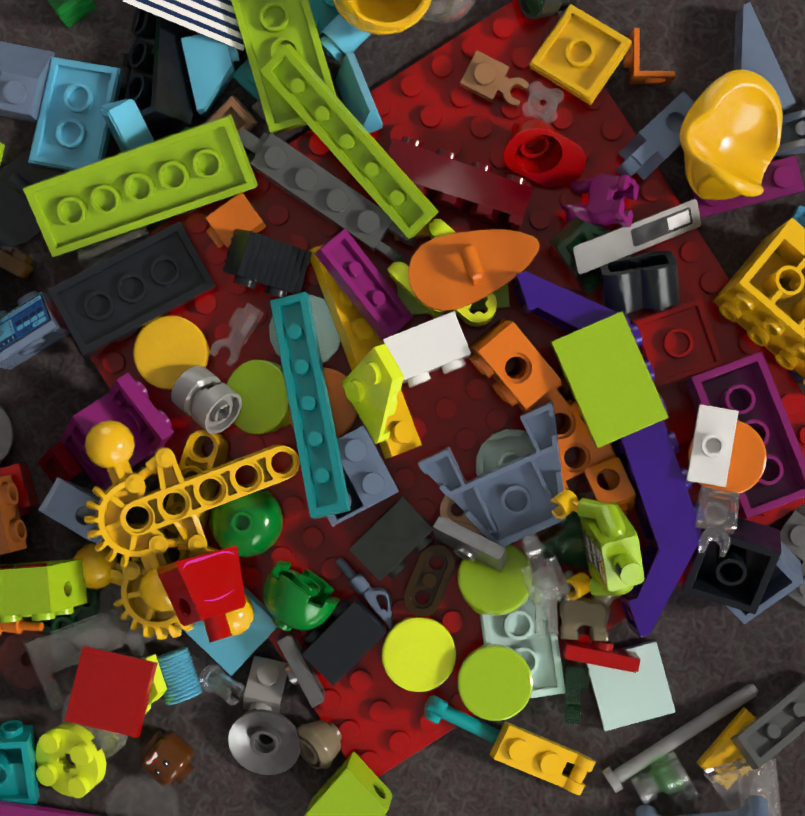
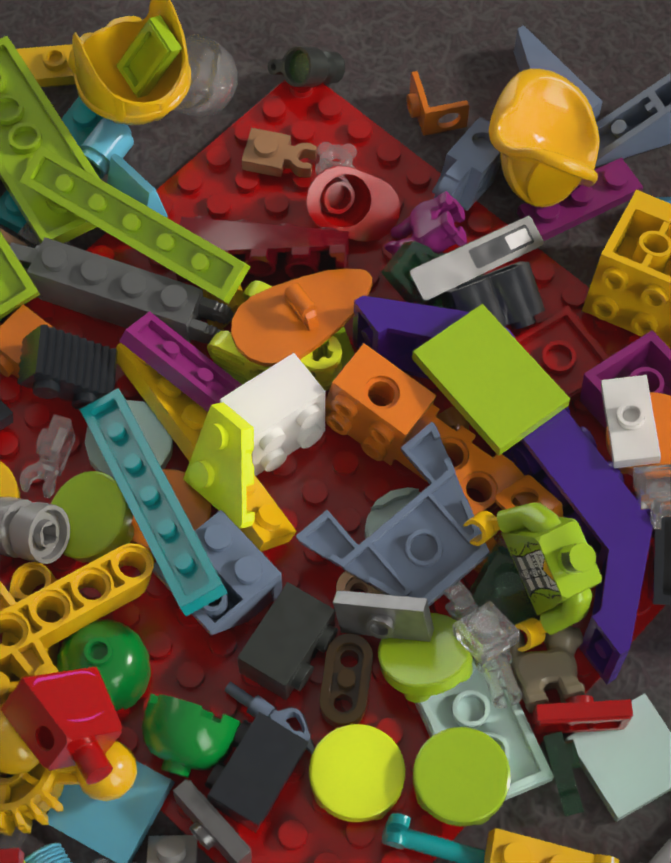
camera: 15 degrees left, 25 degrees down
(580, 54) = (363, 109): yellow tile -> none

